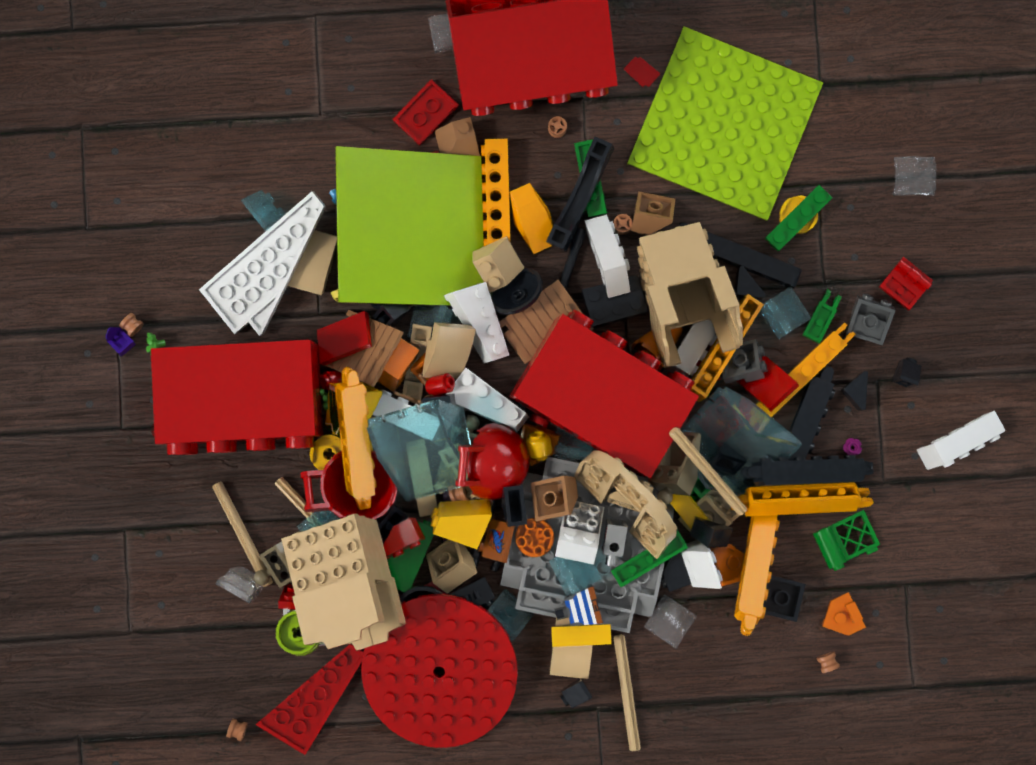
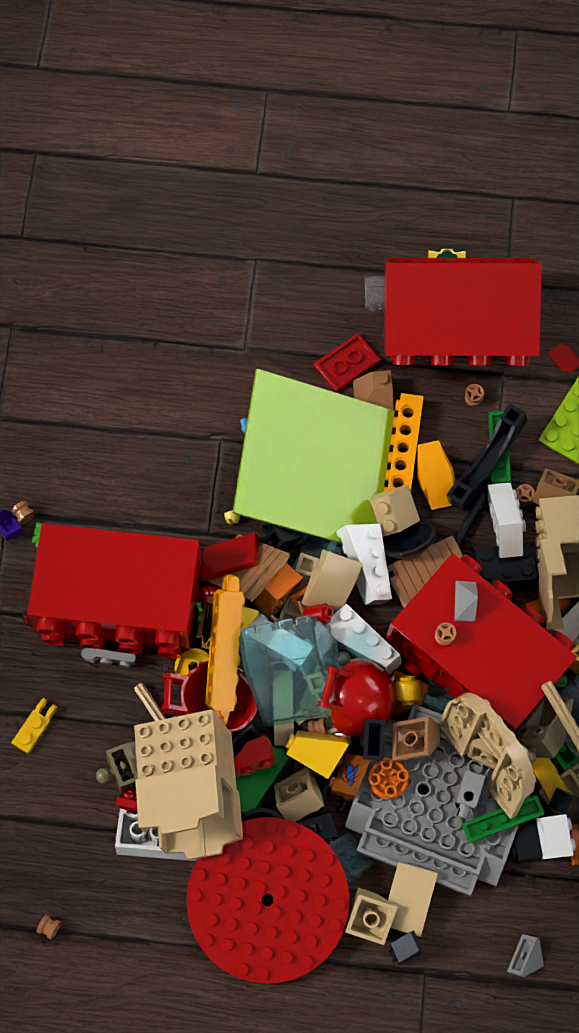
camera: 15 degrees right, 15 degrees down
(185, 538) = (33, 727): none -> yellow hinge
(240, 529) = (90, 727): tan axle -> none
(240, 583) = (81, 777): clear slope -> none
(244, 457) = (108, 657): none -> light grey hinge
(257, 278) = (155, 487): white wing -> none
(262, 209) = (174, 428): clear light blue slope -> none
(287, 636) = (127, 836): lime wheel -> none
(307, 709) = (126, 917): red wing -> none
(315, 263) = (211, 480): tan slope -> none
(538, 669) = (370, 916): none -> tan slope
(570, 397) = (447, 630): none -> nougat wheel
(574, 574) = (424, 817): clear light blue plate -> none
(580, 533) = (435, 779): white slope -> none
(580, 608) = (424, 856): torso -> none
(581, 635) = (420, 885): yellow tile -> none
(583, 361) = (465, 601): none -> light grey slope
(627, 693) = (459, 908): tan axle -> none
(670, 621) = (515, 893): clear slope -> none
(689, 679) = (526, 957): none -> light grey slope

